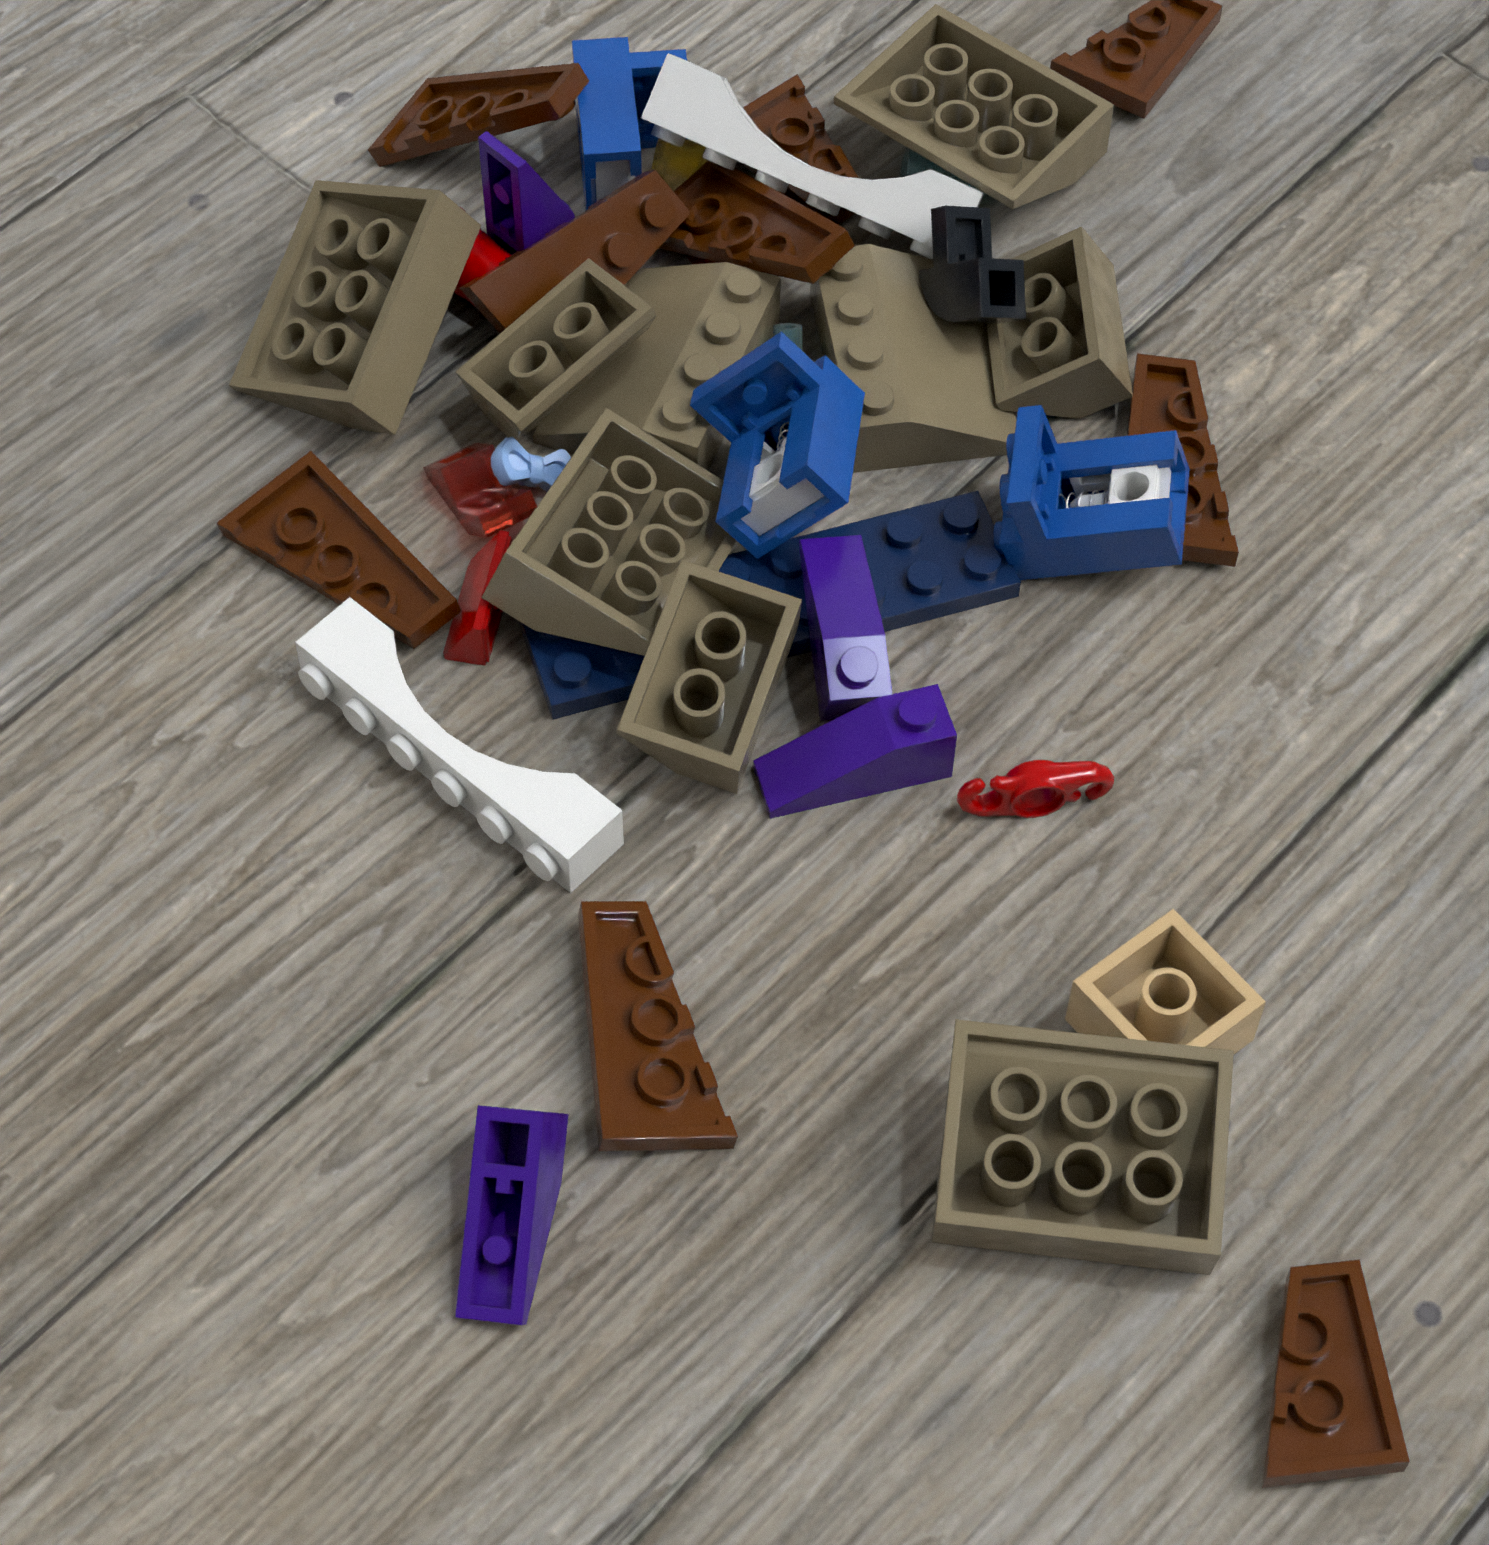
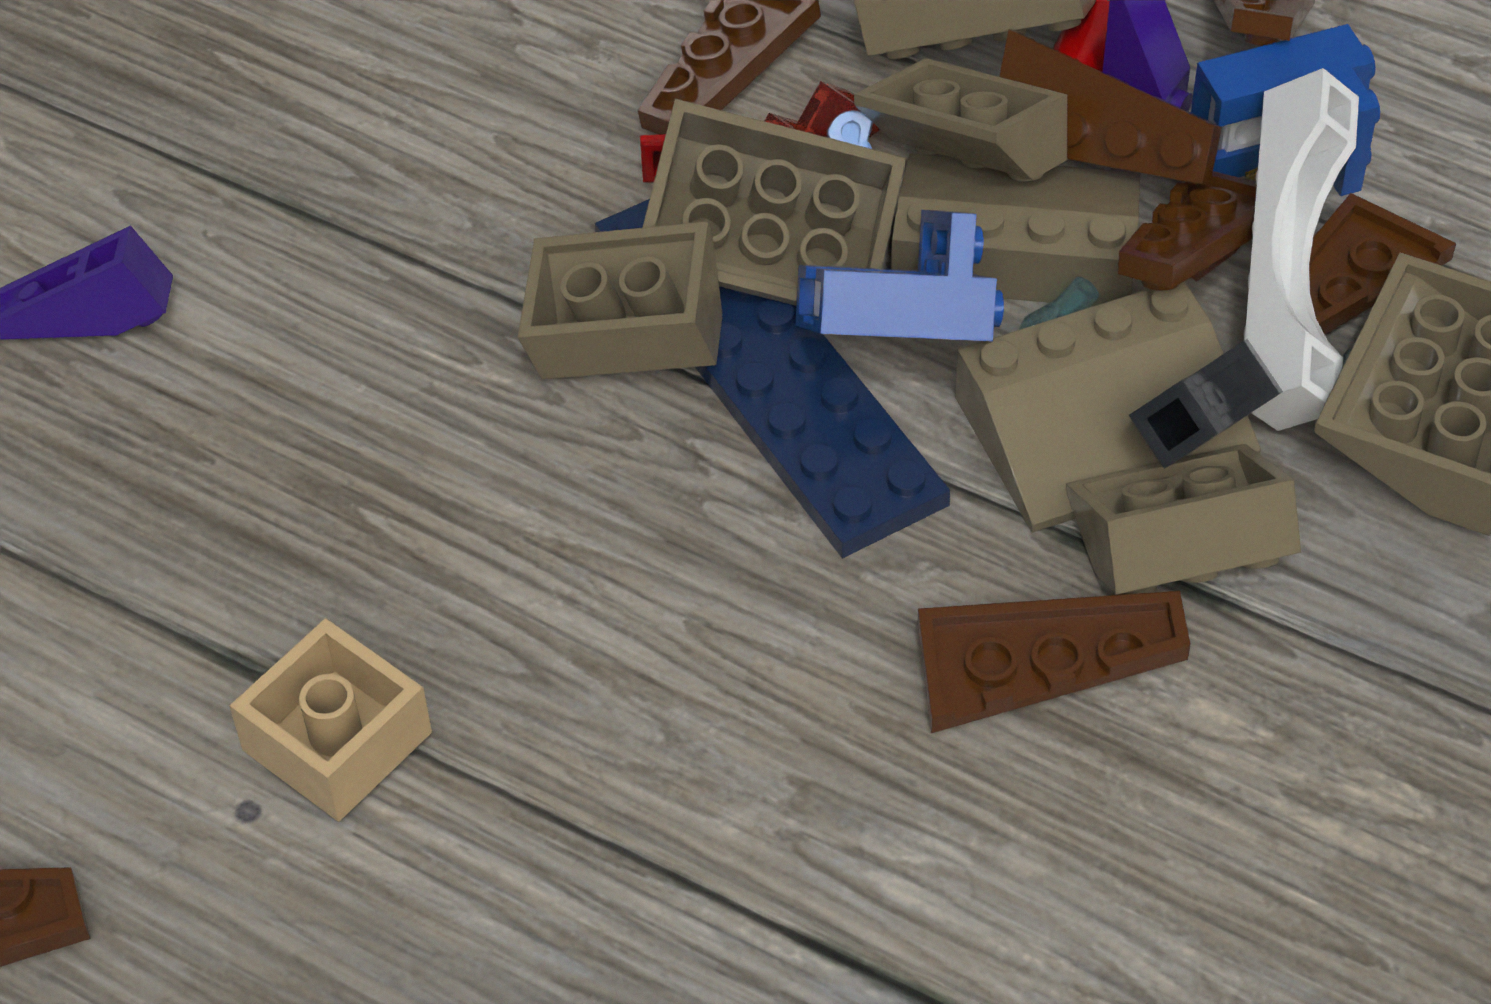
camera: 80 degrees right, 5 degrees down
(547, 816) = (590, 95): white arch -> none
(642, 1044) = (248, 356): reddish brown wing -> none
(843, 625) = (718, 396): dark purple slope -> none
(863, 753) = (598, 457): dark purple slope -> none
(1035, 788) = (587, 592): red piece -> none
(1084, 1147) = (148, 665): dark tan slope -> none
(1090, 501) = (935, 552): blue brick -> none

